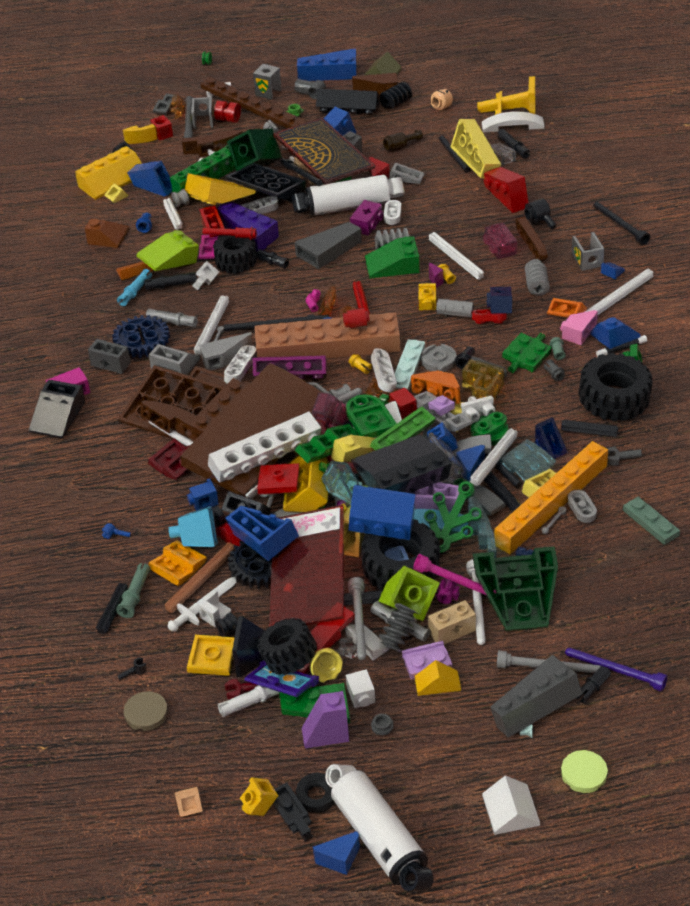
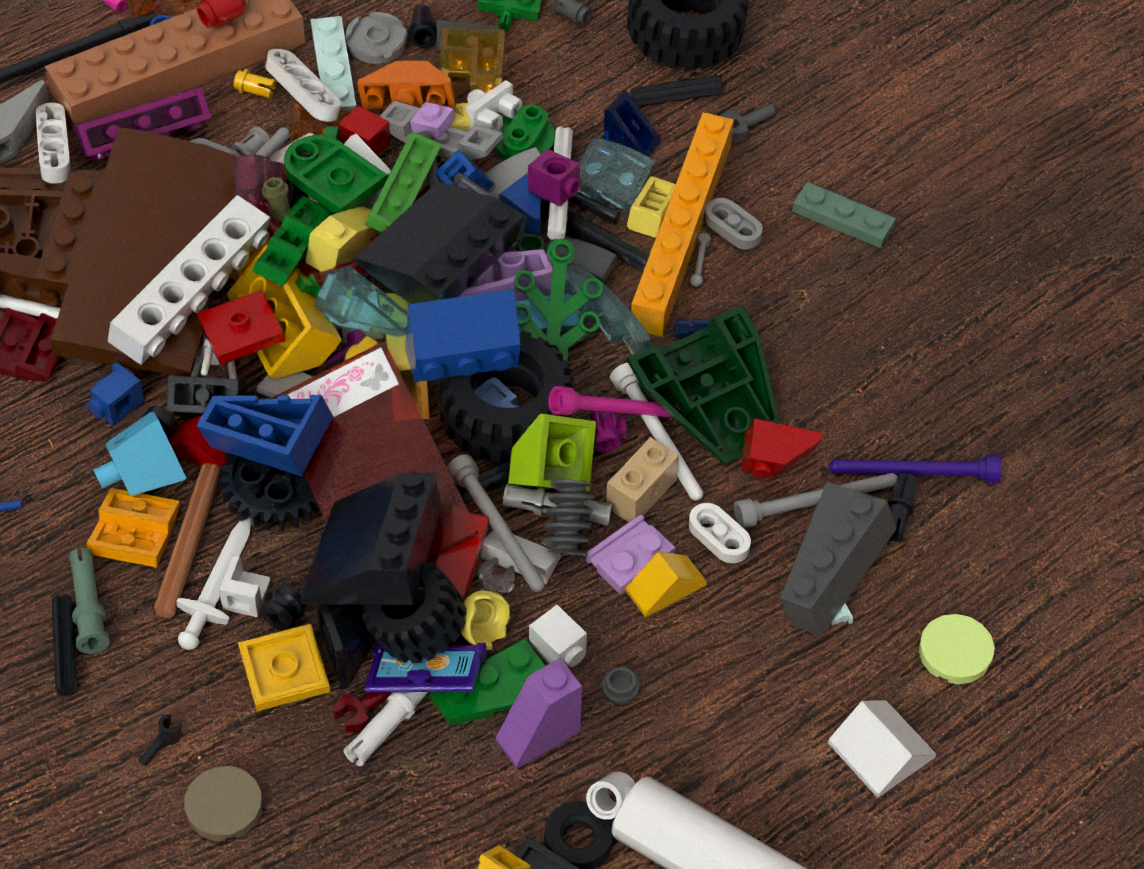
camera: 30 degrees left, 10 degrees up
(284, 604) = (376, 543): none -> black slope
(332, 417) = (276, 194): none -> olive pin
(483, 668) = (722, 534): none -> white plate
(486, 450) = (554, 177): none -> magenta brick
(537, 630) = (775, 447): none -> red slope

